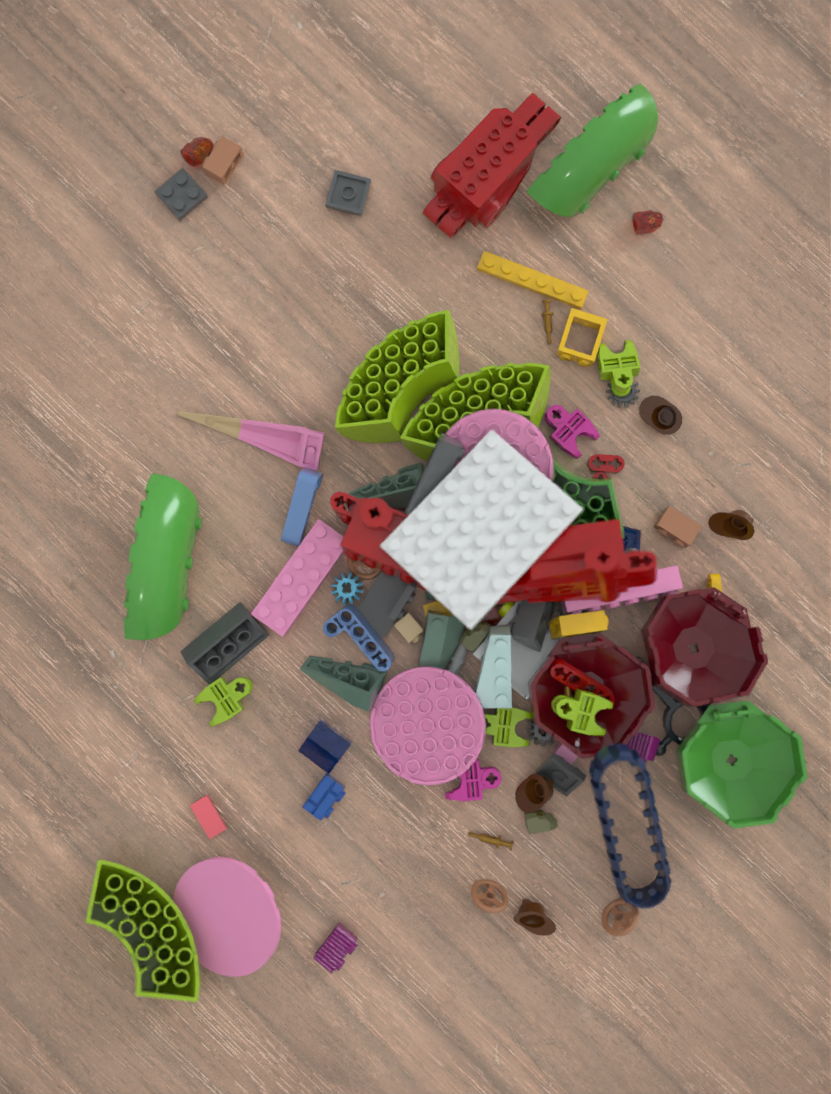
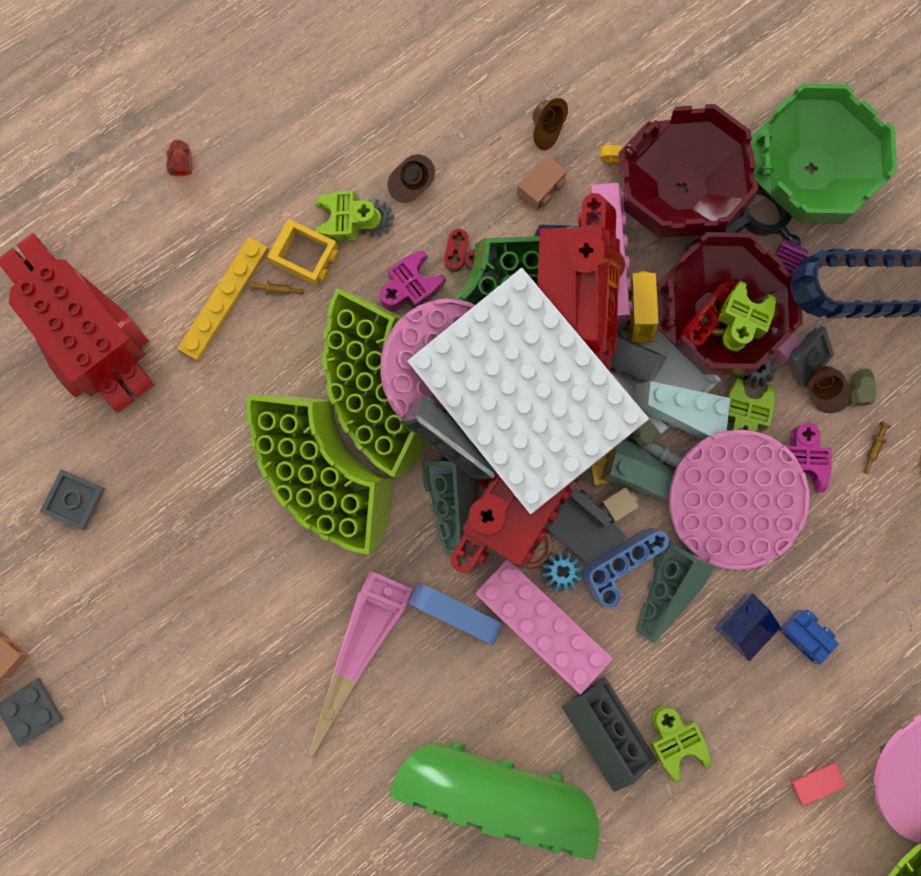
camera: 80 degrees left, 5 degrees down
(598, 154) = (90, 195): bright green brick -> none

